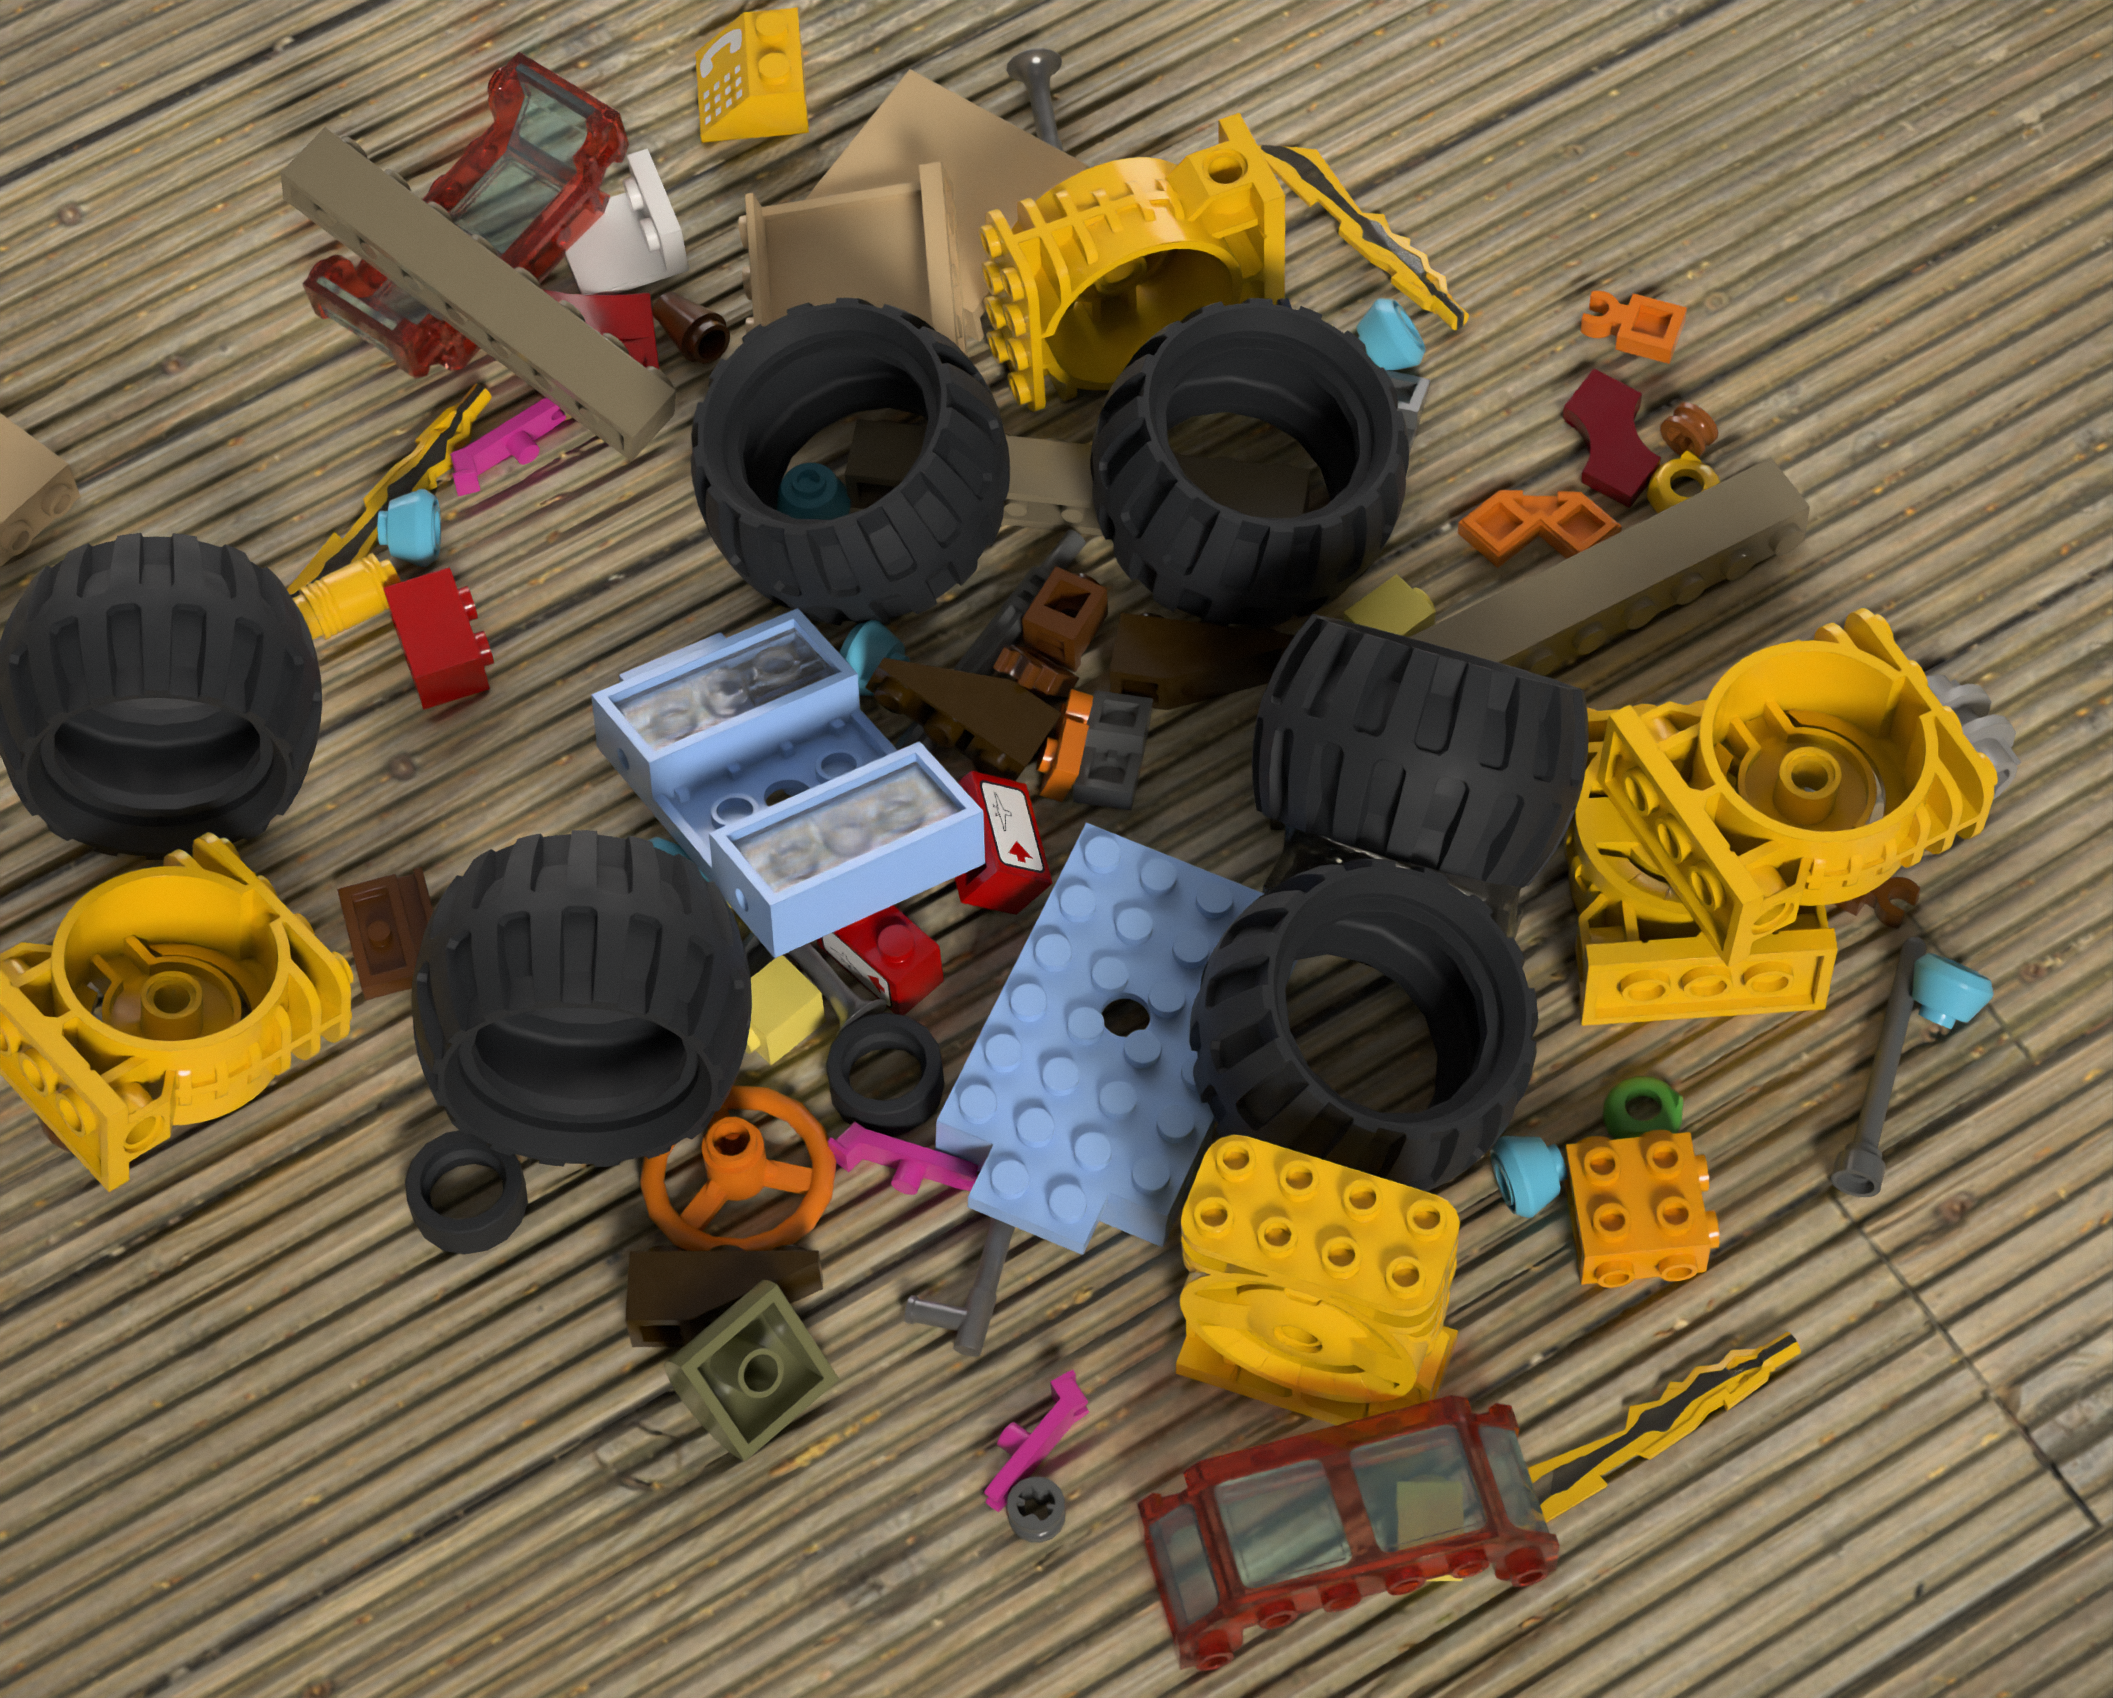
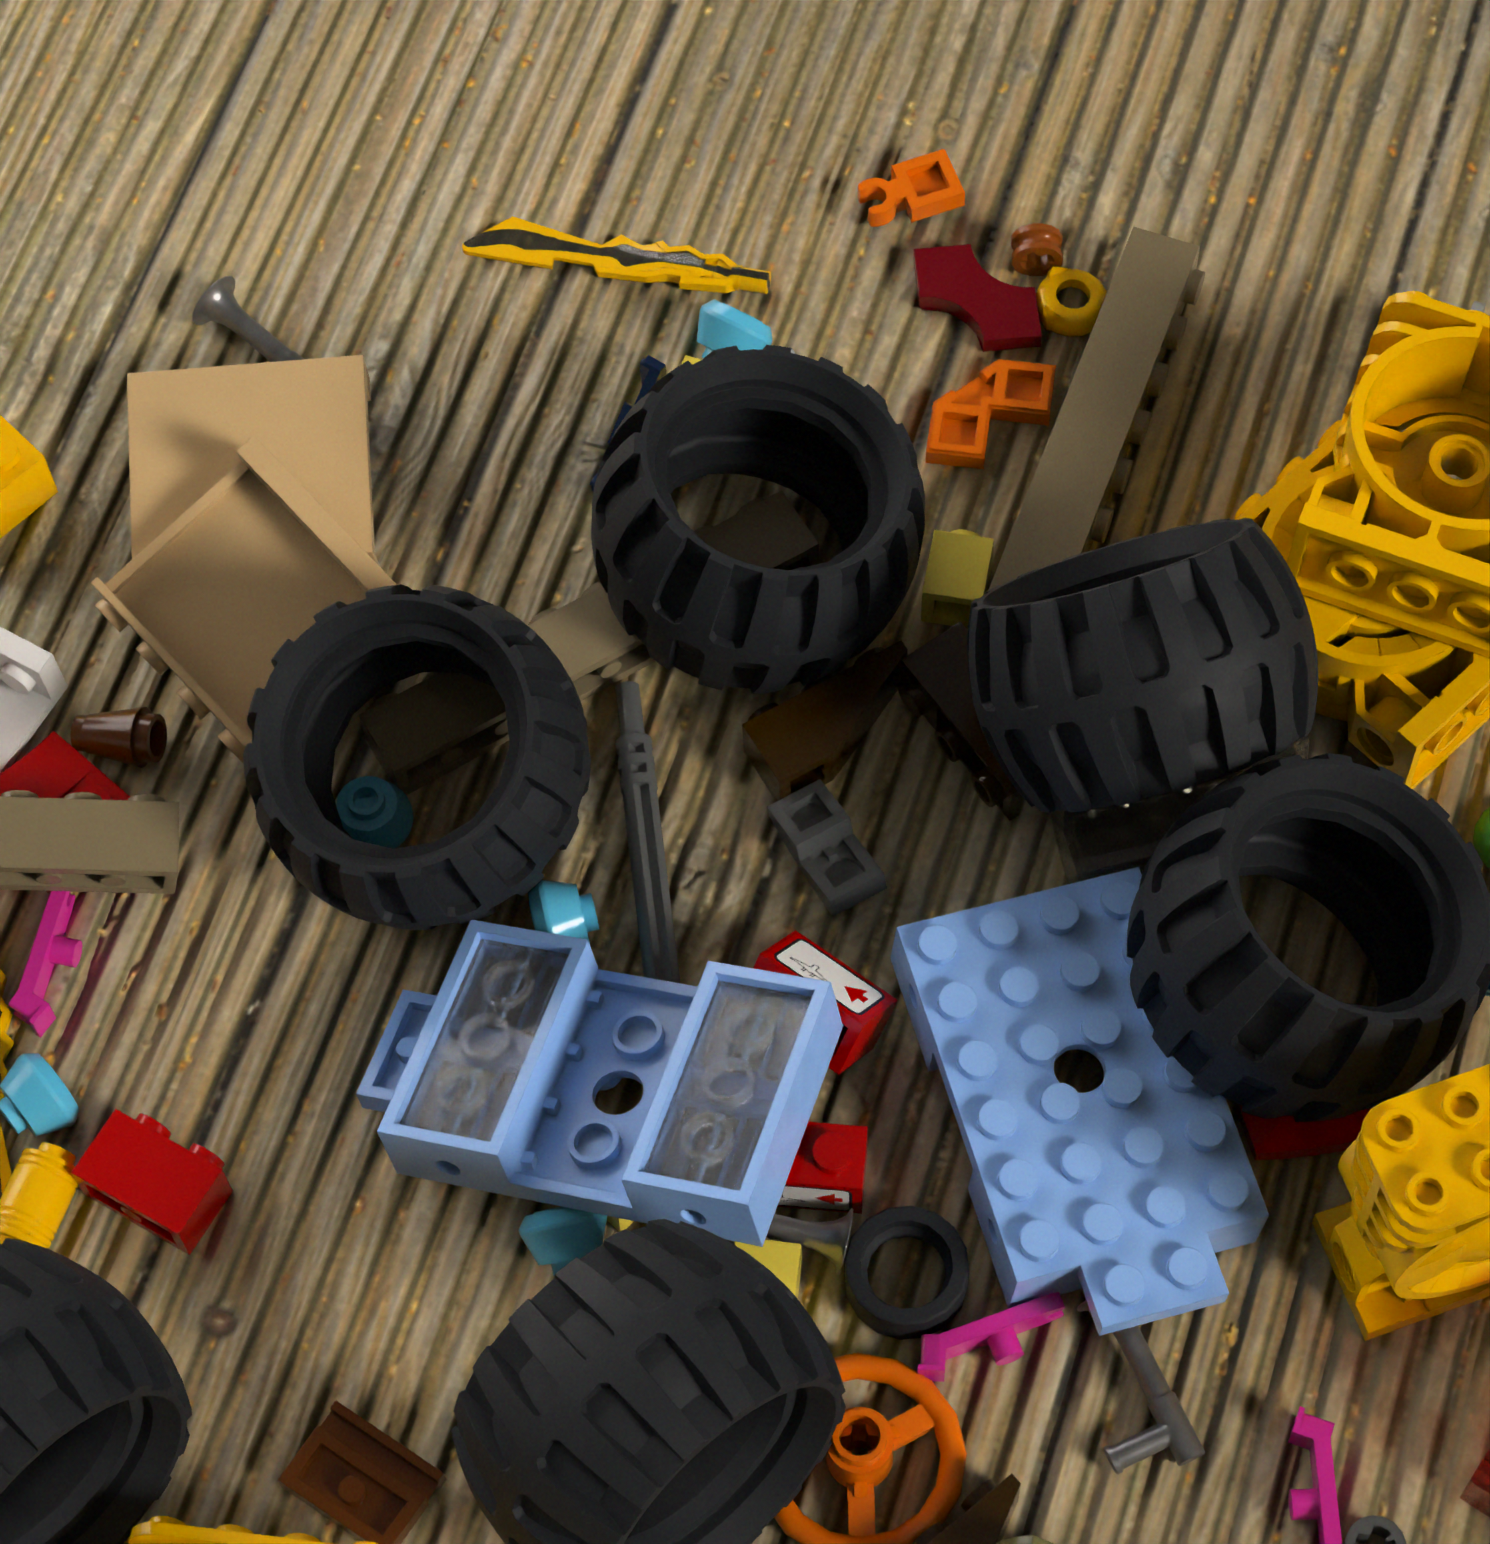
camera: 40 degrees left, 5 degrees up
(974, 713) = (711, 900): dark brown slope -> none
(1035, 672) = (709, 827): reddish brown plate -> none
(1062, 756) = (797, 877): orange plate -> none
(1065, 617) = (693, 782): reddish brown brick -> none
(1126, 255) = (500, 414): yellow brick -> none

